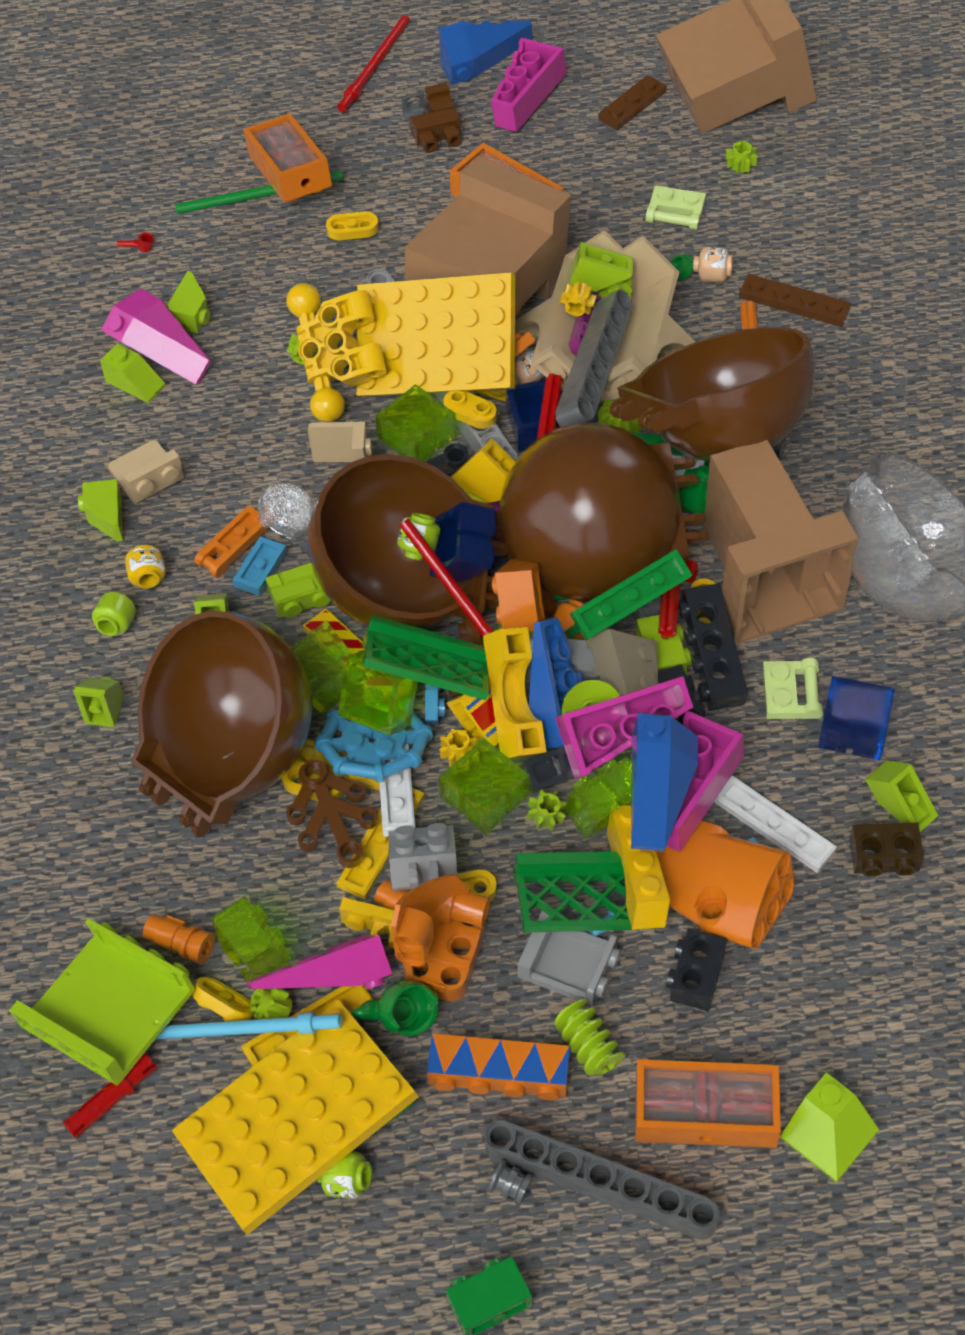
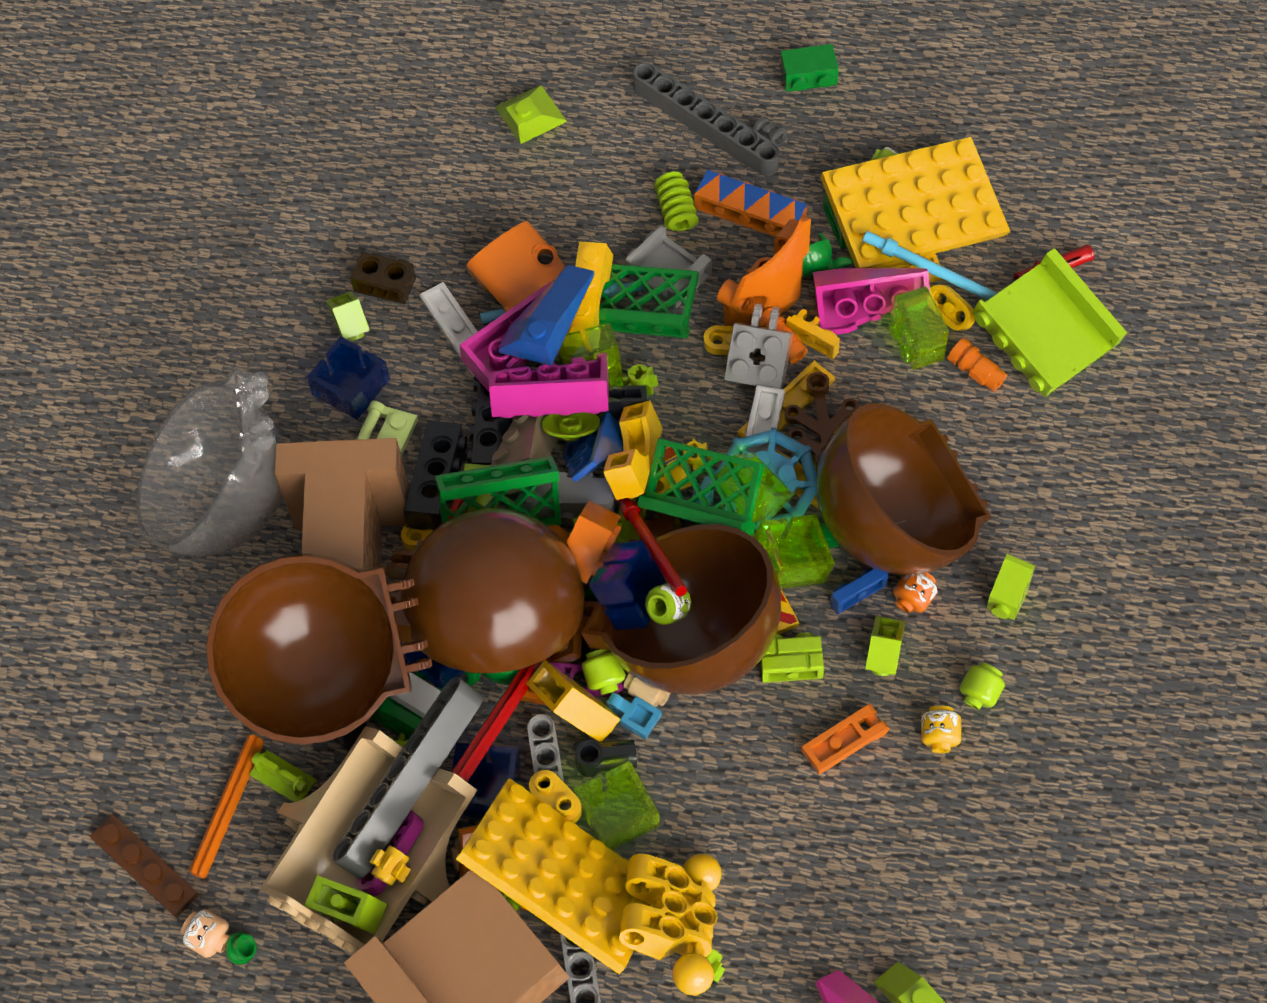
camera: 160 degrees left, 5 degrees up
(103, 506) = (973, 818): lime slope -> none
(146, 470) = (918, 854): tan bracket -> none
(258, 565) = (824, 700): dark azure plate -> none
(285, 509) = (781, 747): clear tile -> none
(339, 441) = (696, 802): tan bracket -> none
(484, 786) = (686, 414): clear neon green piece -> none
(700, 970) = (570, 228): black brick -> none
(707, 1103) = (610, 137): brick -> none

